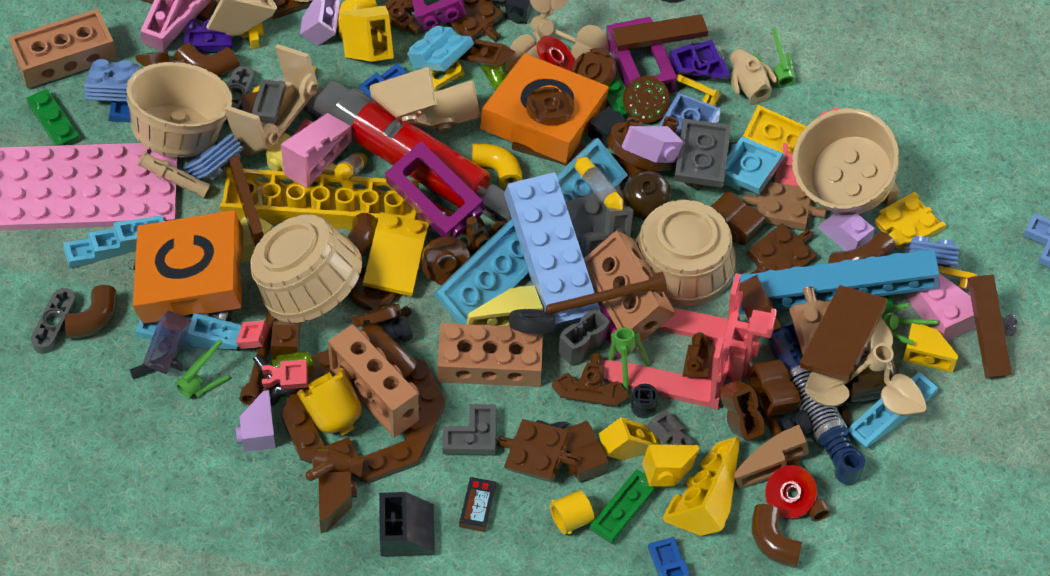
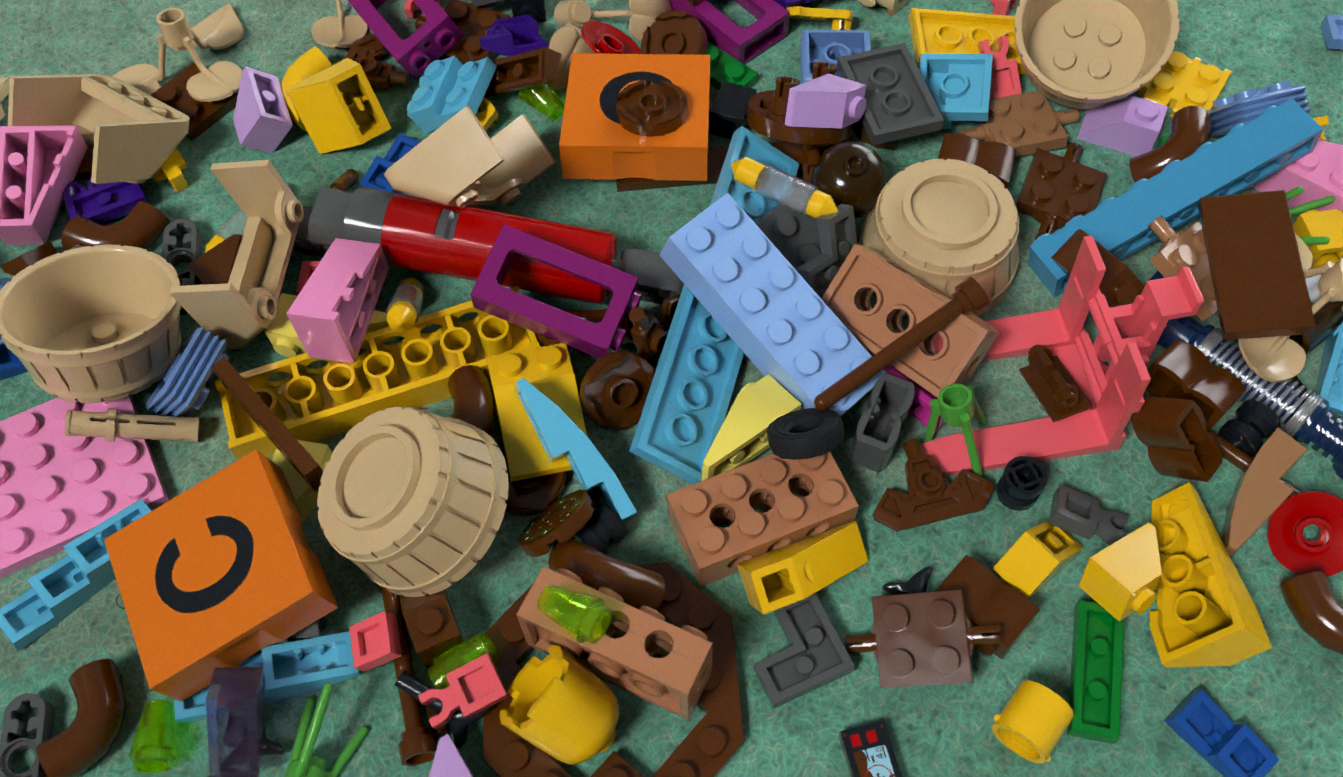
camera: 20 degrees left, 5 degrees up
(122, 336) = (155, 739): none -> clear neon green cone
(269, 100) = (236, 254): dark grey tile -> none
(351, 80) = (345, 181): none -> reddish brown piece
(357, 350) = (575, 612): none -> clear neon green cone
(401, 274) = (564, 438): none -> medium azure slope
(494, 28) = (513, 36): none -> dark purple slope
(498, 391) = (802, 567): none -> yellow slope
(500, 160) = (614, 212): yellow cylinder -> none
(646, 99) = (763, 53): reddish brown tile -> none

